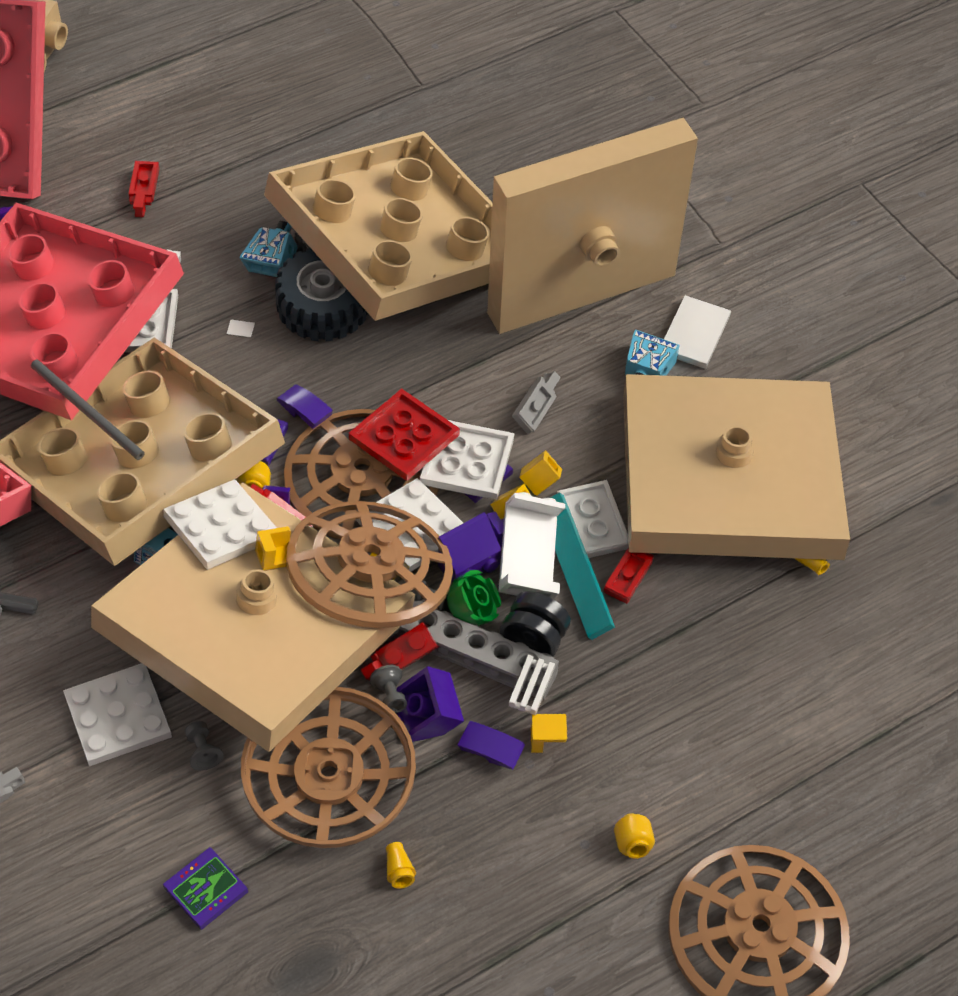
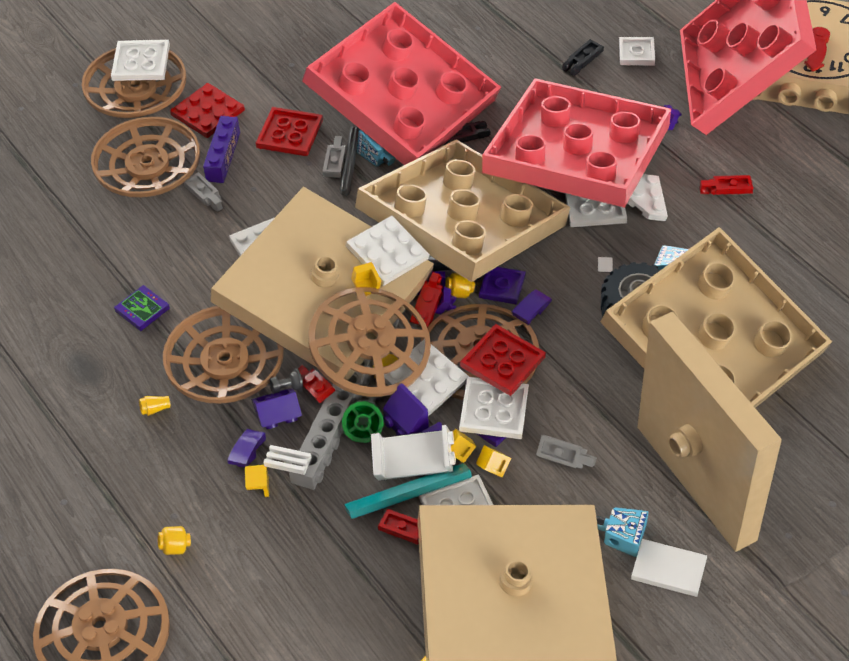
camera: 90 degrees right, 5 degrees down
(88, 410) = (474, 166): dark grey piece -> none
(536, 622) = (340, 460): black wheel -> none

